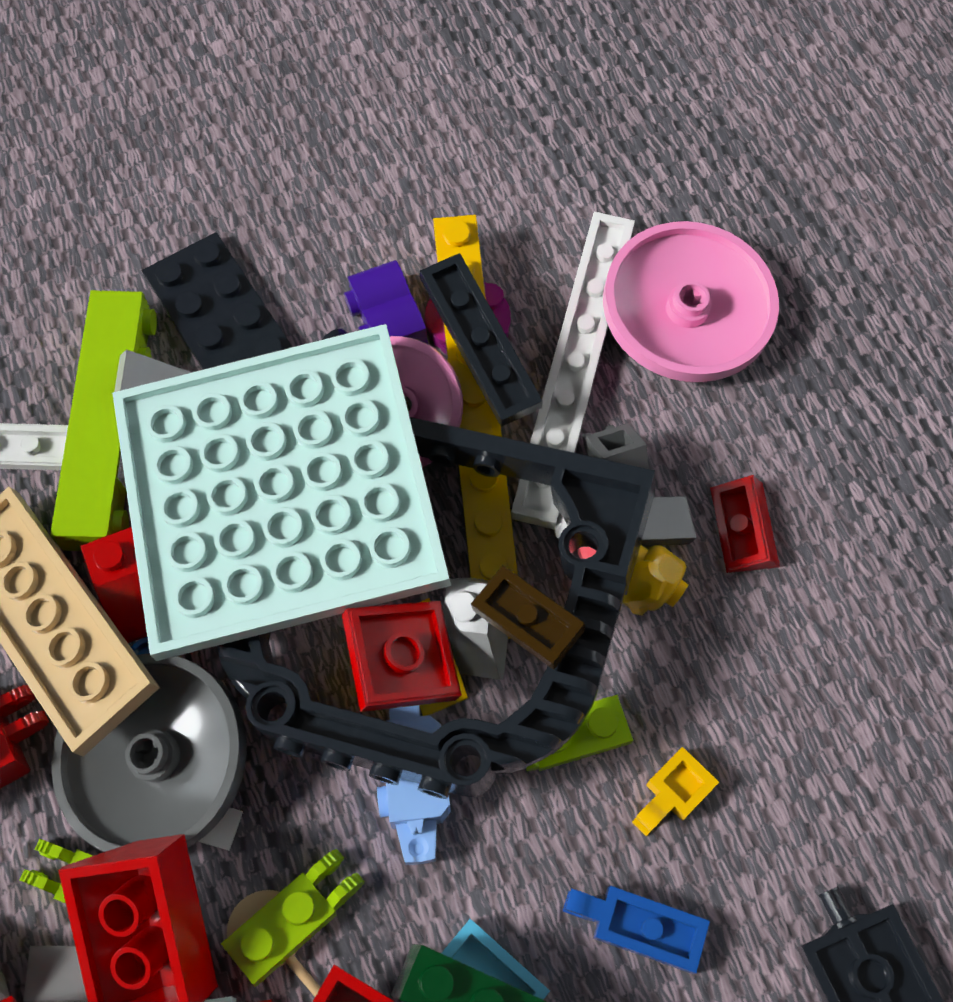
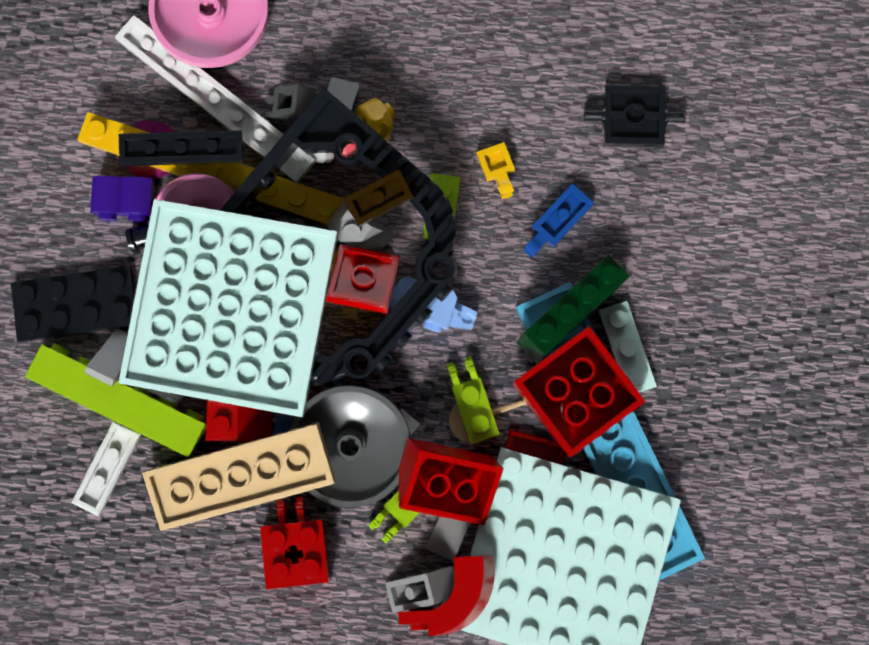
camera: 65 degrees left, 15 degrees up
(744, 525) = (364, 52): red slope -> none

